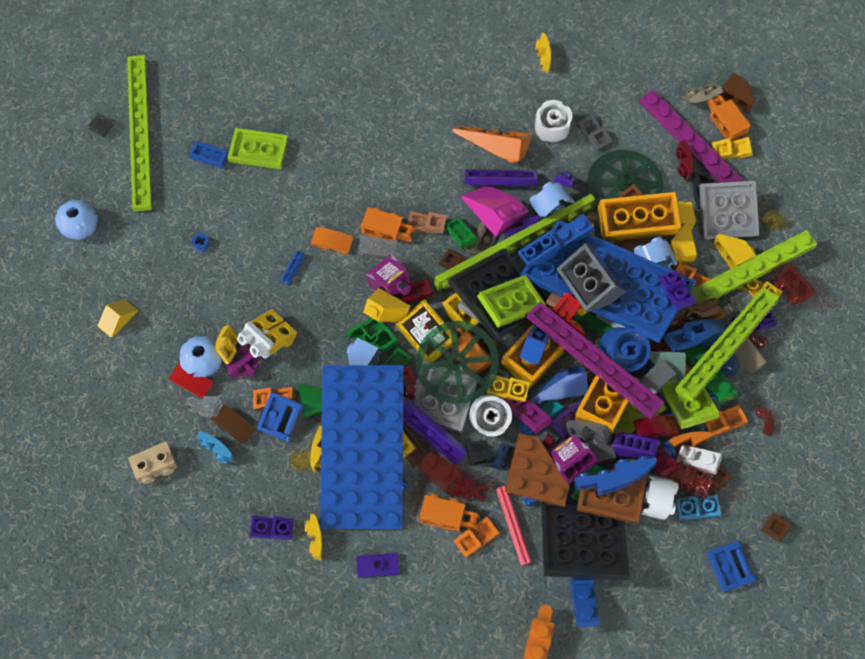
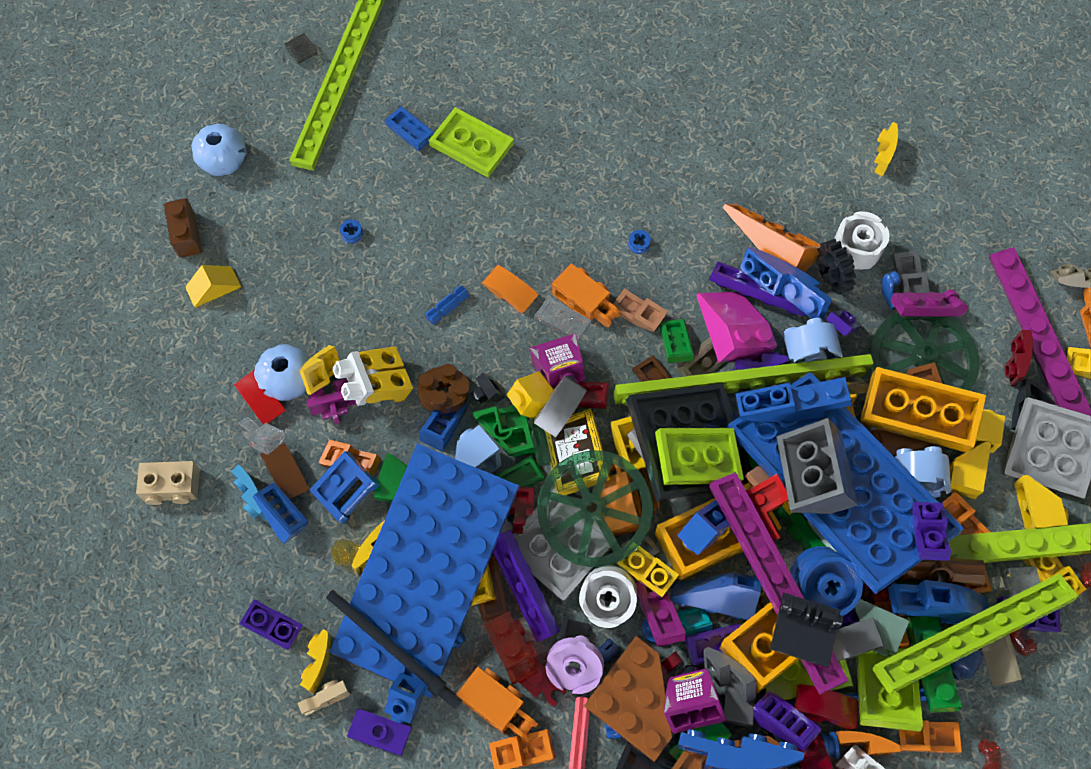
camera: 25 degrees right, 0 degrees up
(76, 284) = (182, 228): none -> reddish brown brick
(250, 455) = (278, 524): none -> blue slope
(317, 316) = (447, 377): none -> reddish brown plate
(327, 358) = (436, 436): none -> blue slope
(334, 553) = (330, 694): none -> tan plate
(348, 314) = (487, 390): none -> black tile
(386, 536) = (401, 704): none -> blue brick
(399, 333) = (540, 443): none -> clear green axle
(403, 518) = (436, 685): none -> black bar
(404, 170) = (641, 235): none -> blue bush
(404, 305) = (560, 406): none -> flat silver slope
(488, 456) = (578, 650): none -> lavender plate
(518, 165) = (785, 279): none -> blue slope
(545, 143) = (836, 266): none -> black gear
(583, 146) = (888, 290): none -> blue arm
(614, 147) = (929, 304): none -> magenta plate
(626, 381) = (806, 630): none -> black hinge

